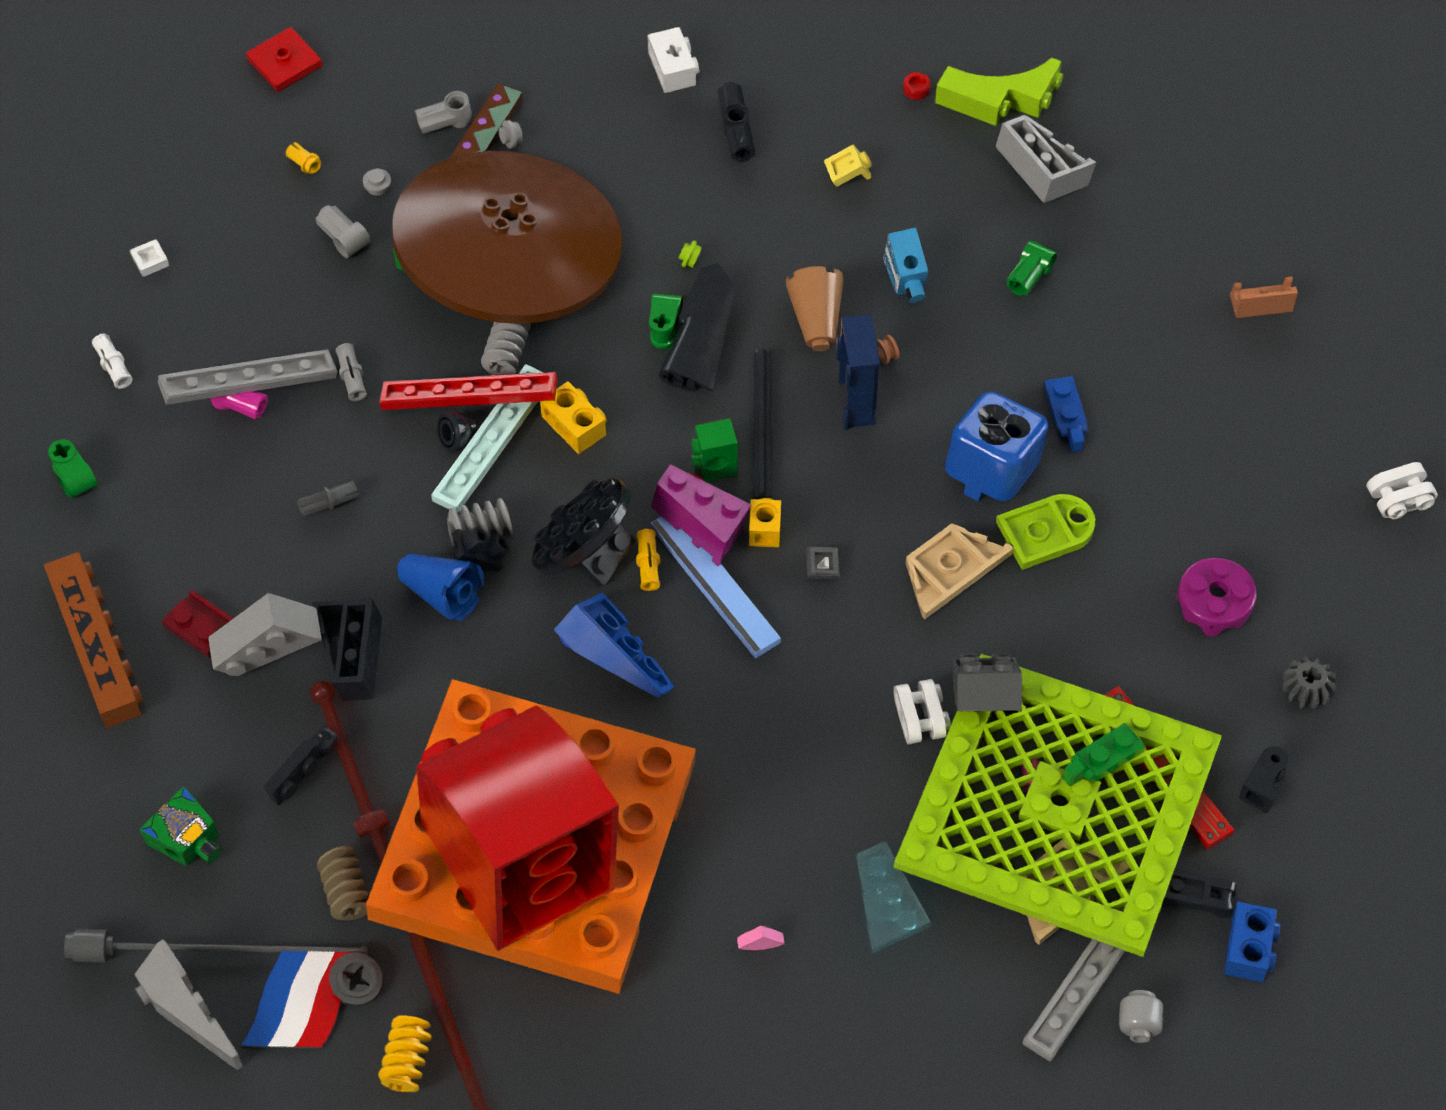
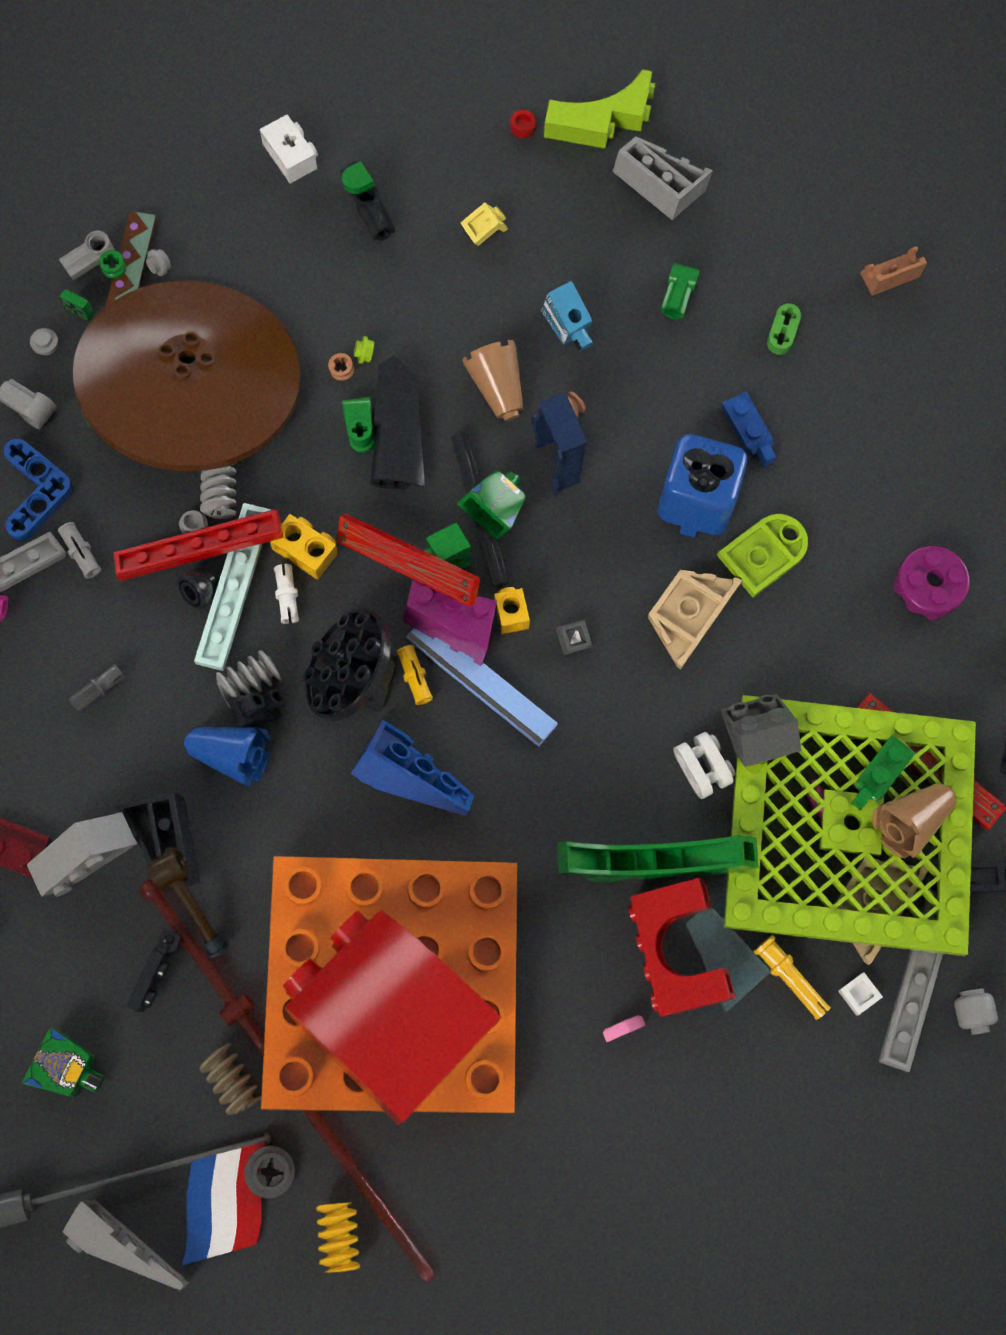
camera: 20 degrees left, 15 degrees up
(335, 307) = (45, 484): none -> blue beam
(345, 665) = (170, 871): none -> dark brown piece
(418, 153) = (76, 305): none -> green tile
(465, 132) = (119, 268): none -> green bush
(470, 368) = (192, 521): none -> light grey plate
(542, 457) = (286, 593): none -> white pin
(666, 258) = (341, 357): none -> nougat bush
(672, 445) = (408, 560): none -> red tile
(729, 96) = (357, 179): none -> green tile
(776, 415) = (494, 502): none -> green torso
(823, 838) = (654, 914): none -> red arch
(840, 785) = (658, 861): none -> green arch
(945, 921) = (782, 966): none -> yellow pin
(1022, 971) = (860, 993): none -> white tile
(1122, 801) = (913, 819): none -> medium nougat cone
(1126, 324) = (789, 330): none -> bright green beam

